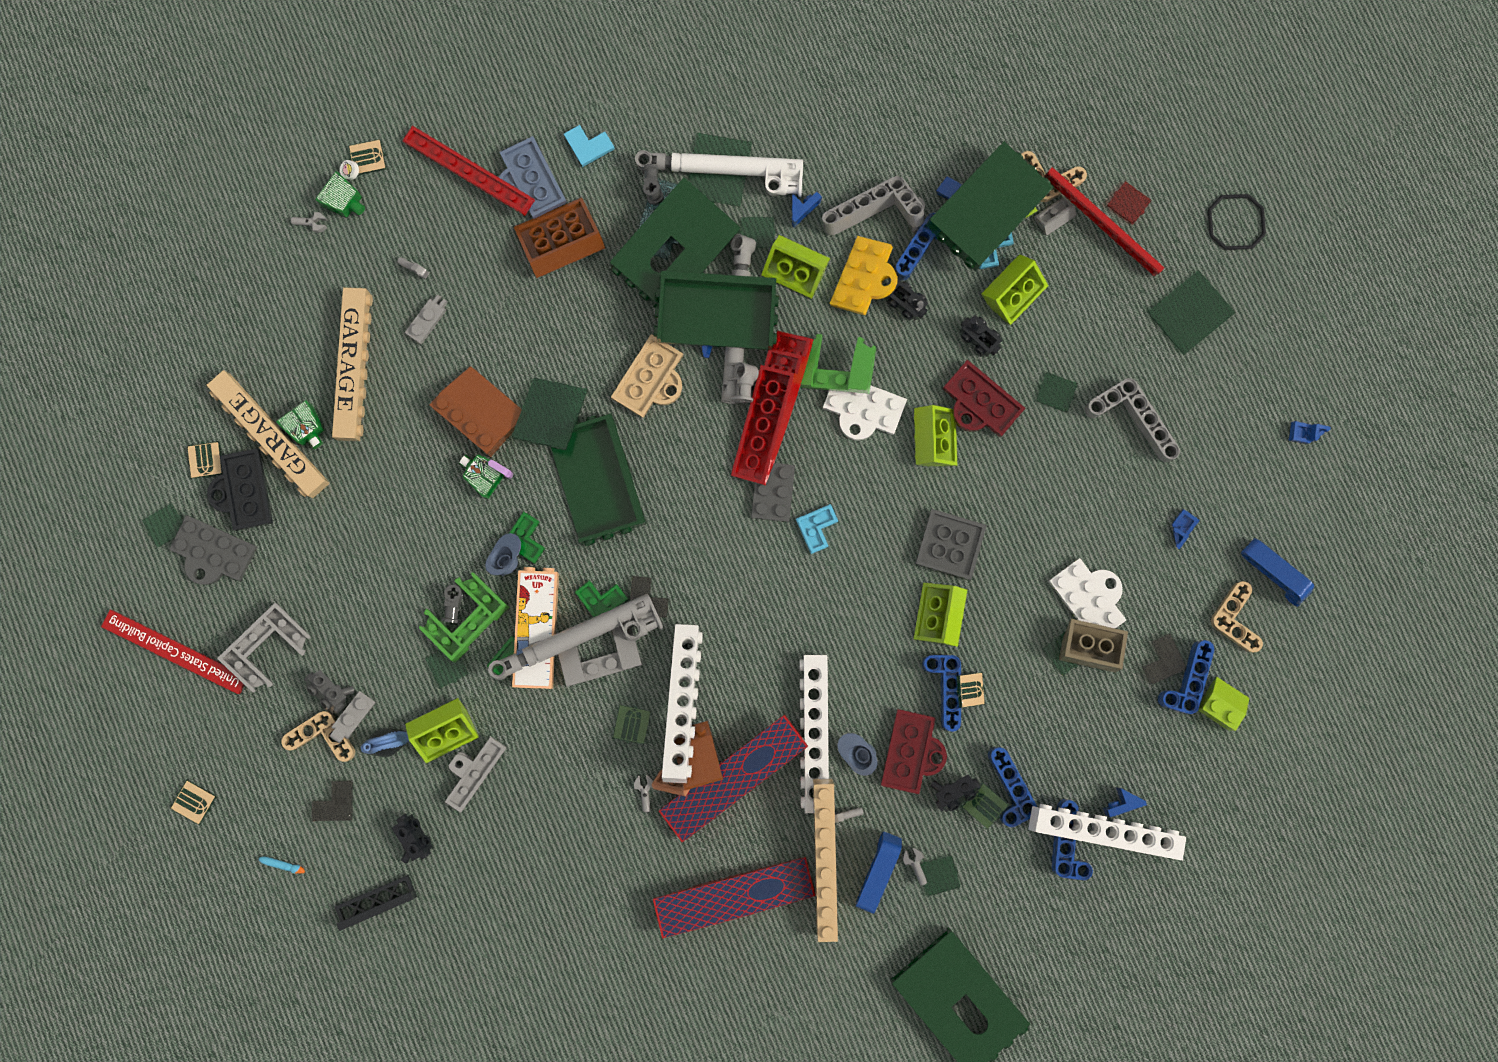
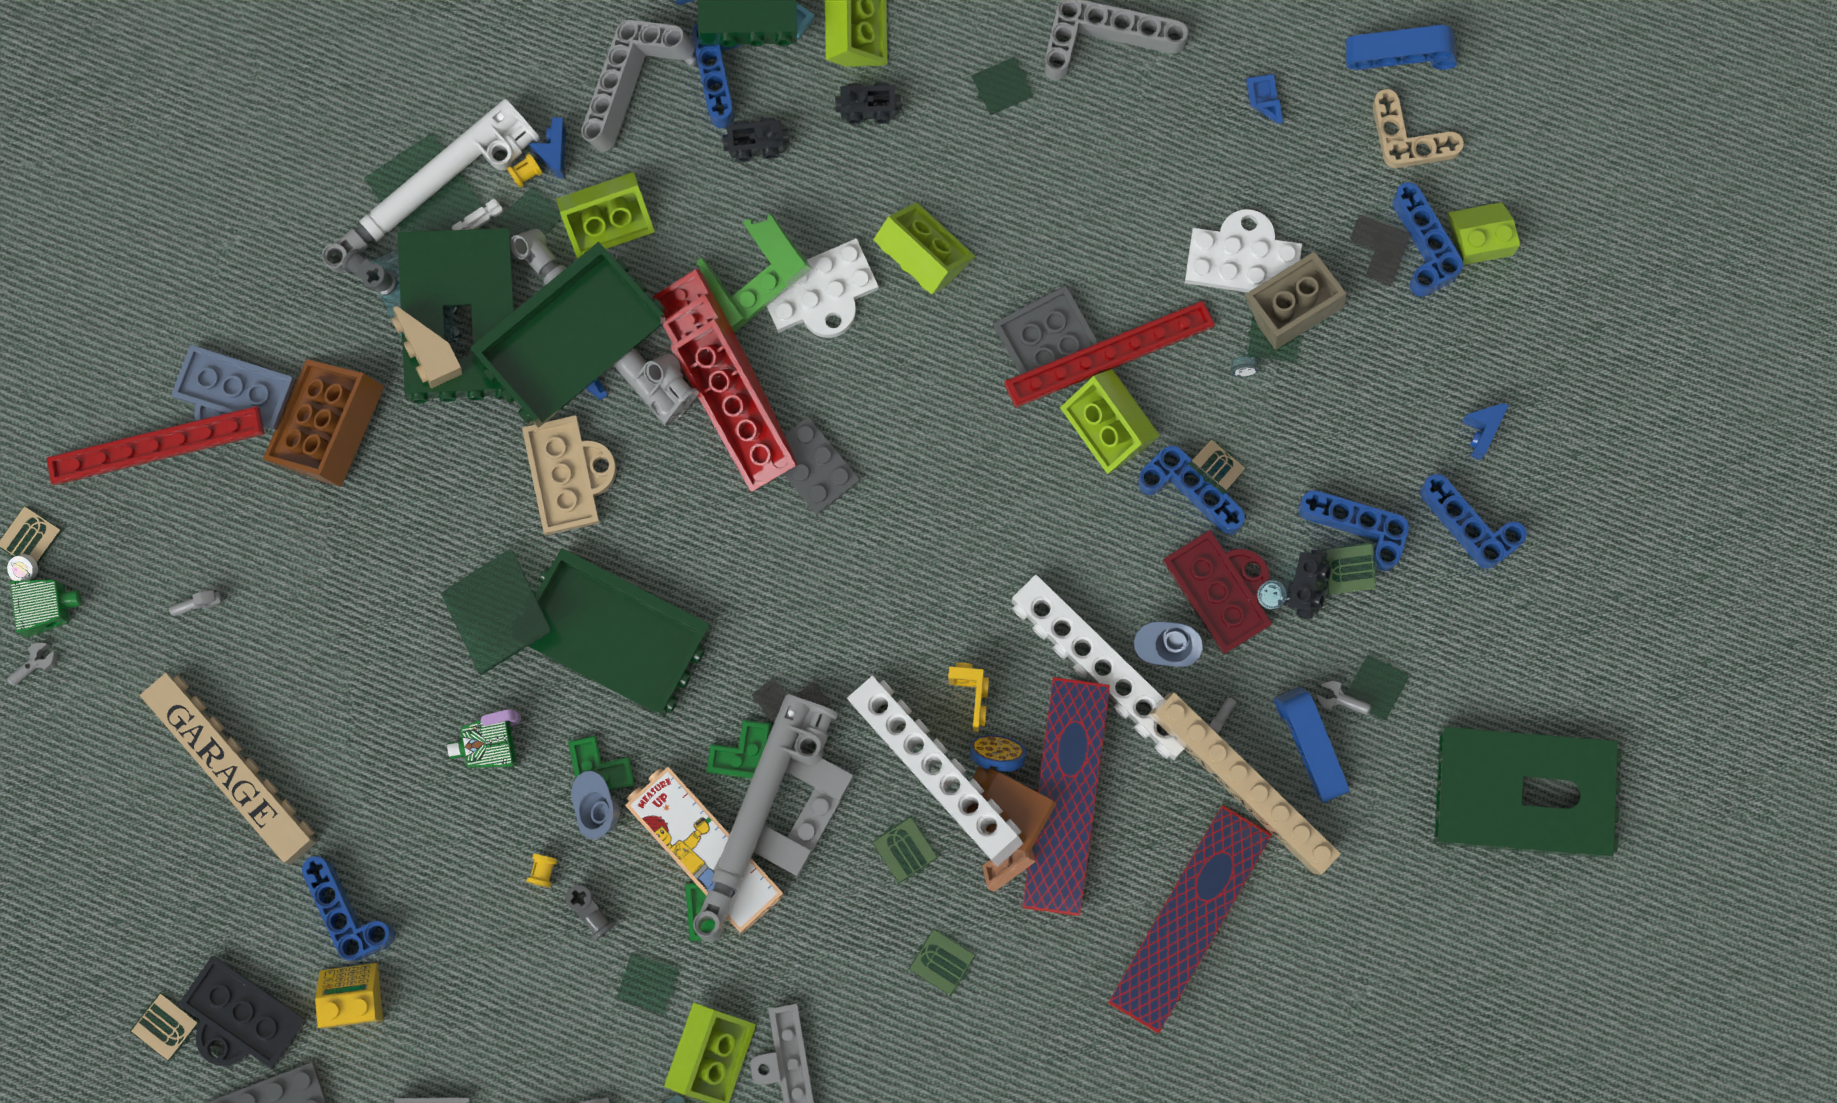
camera: 35 degrees left, 5 degrees down
(268, 434) = (208, 930): tan brick -> none
(301, 531) = (348, 996): none -> yellow slope
(303, 425) = (238, 883): green torso -> none
(340, 484) = (339, 906): none -> blue beam
(427, 319) = (264, 644): light grey hinge -> none
(449, 561) = (541, 870): none -> yellow bush
(456, 643) = (634, 949): bright green wedge -> none
(478, 410) = (415, 685): dark orange slope -> none
(585, 149) = (264, 305): medium azure tile -> none
(595, 796) = (942, 962): none -> clear green piece
(641, 254) = (431, 351): none -> tan slope
(644, 792) = (988, 906): light grey bar -> none
(721, 723) = (997, 752): none -> tile
(732, 207) = (480, 216): none -> white axle
(743, 669) = (965, 675): none -> yellow bracket
(777, 205) = (524, 170): none -> yellow bush
(811, 526) = (886, 459): medium azure tile -> none
(864, 276) = (687, 156): yellow plate -> none
(933, 780) = (1272, 594): none -> clear light blue tile
(973, 581) = (1109, 354): none -> red tile
(982, 401) = (934, 167): dark red plate -> none
(1034, 653) = (1244, 367): none -> clear light blue tile
(1172, 847) = (1577, 425): white brick -> none

